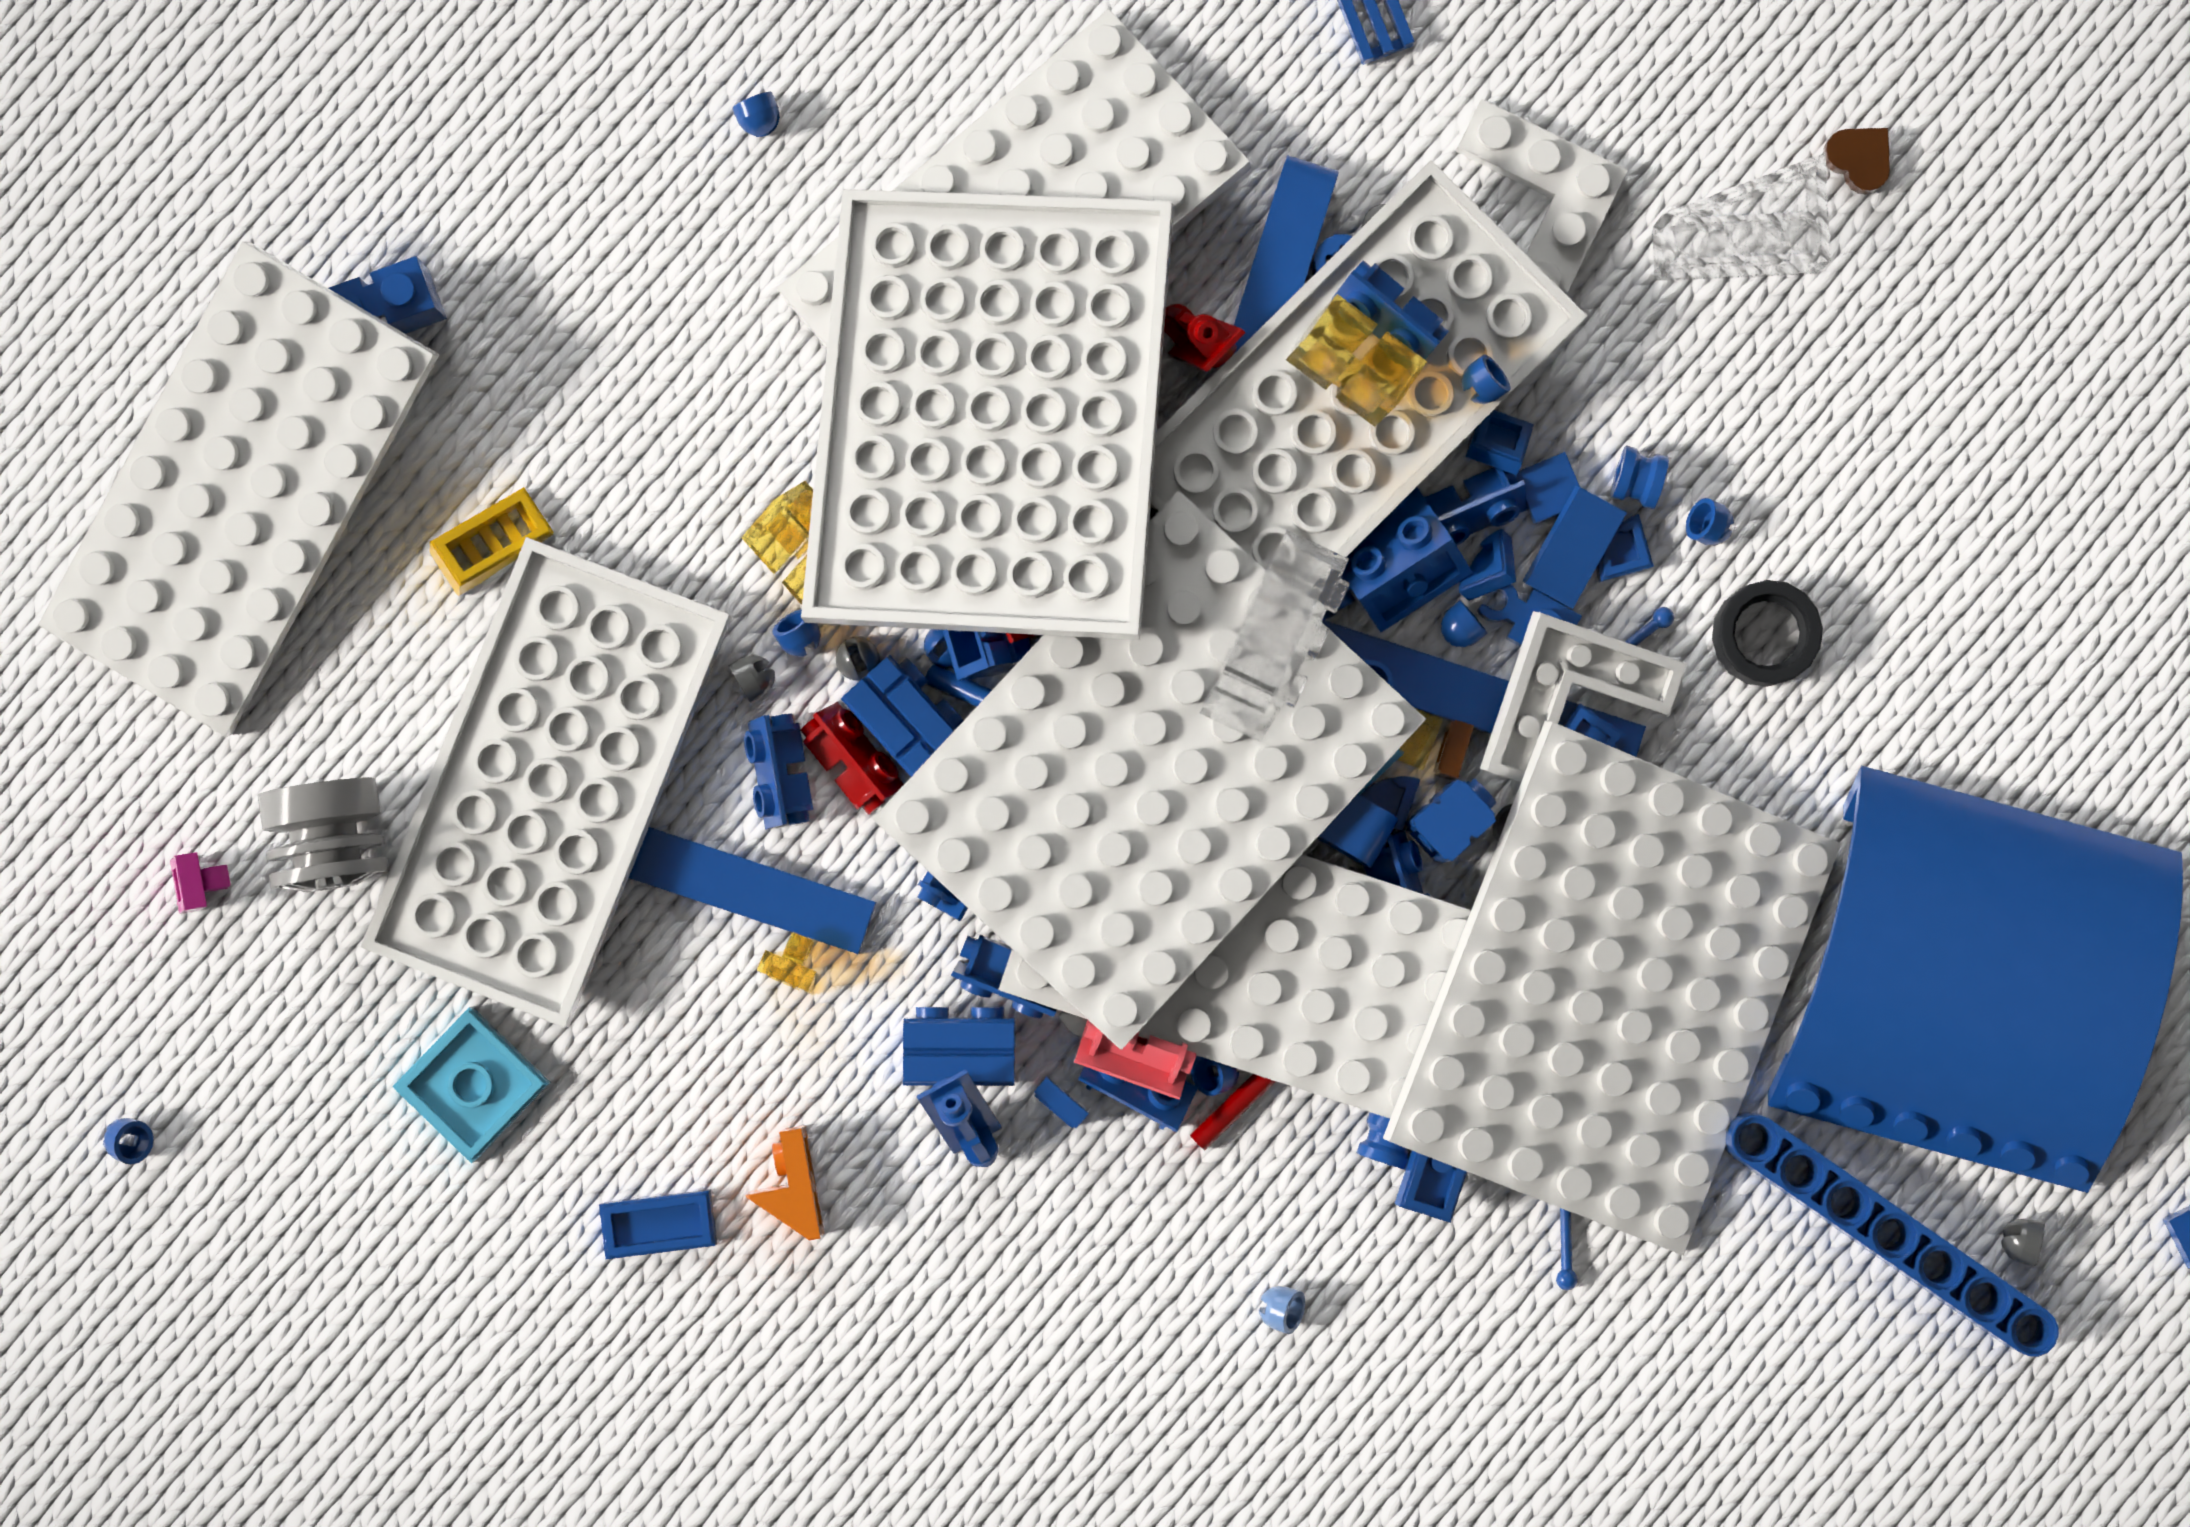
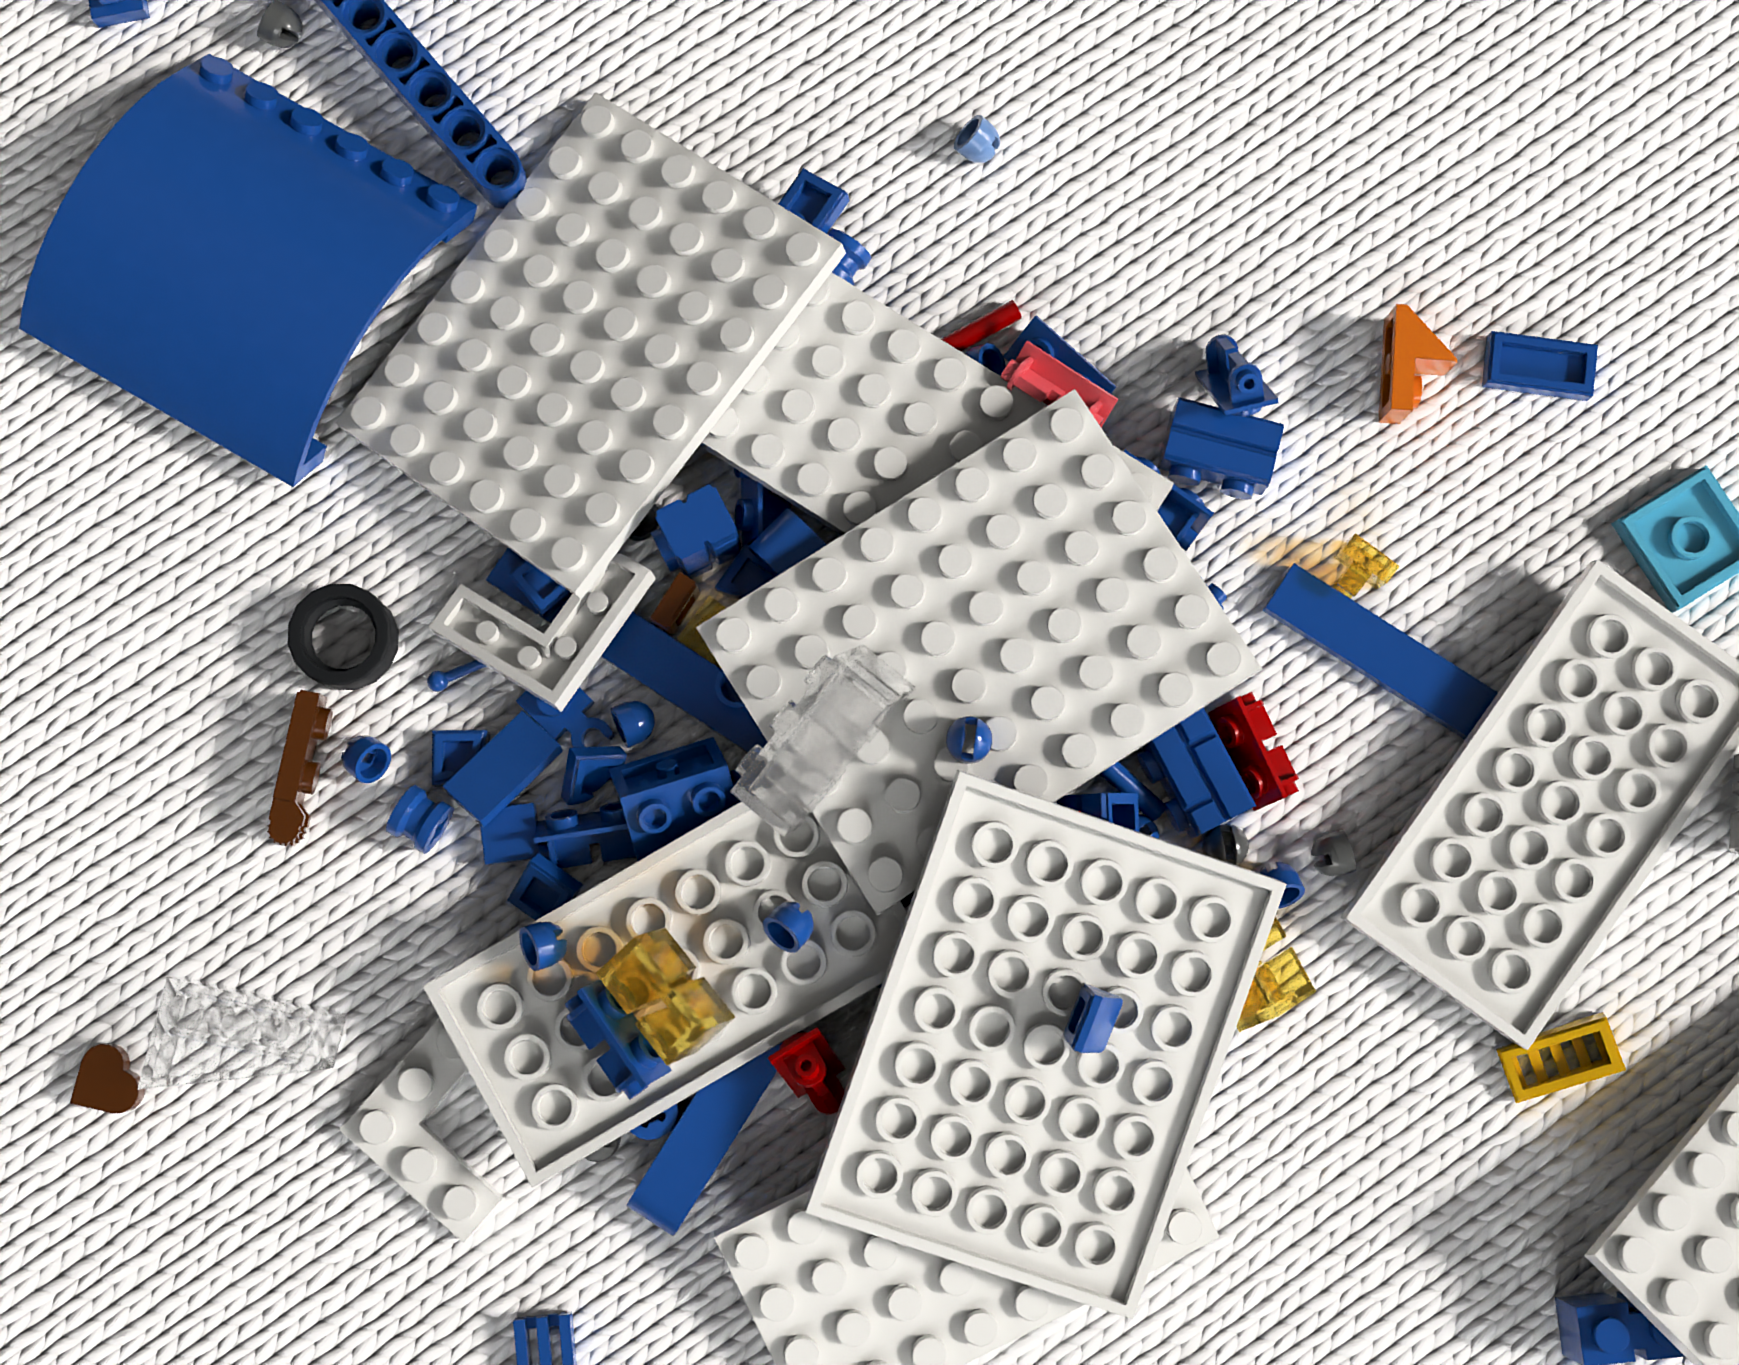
camera: 165 degrees left, 5 degrees down
(771, 751) = (1331, 777): blue hinge -> none
(952, 441) = (1092, 1019): none -> blue slope
(1060, 1103) = (1136, 374): blue tile -> none
(1123, 676) = (956, 737): none -> blue hinge
(1258, 457) = (788, 926): none -> blue hinge
(1566, 1278) = (707, 102): blue hinge -> none
(1770, 492) = (297, 770): none -> reddish brown hinge

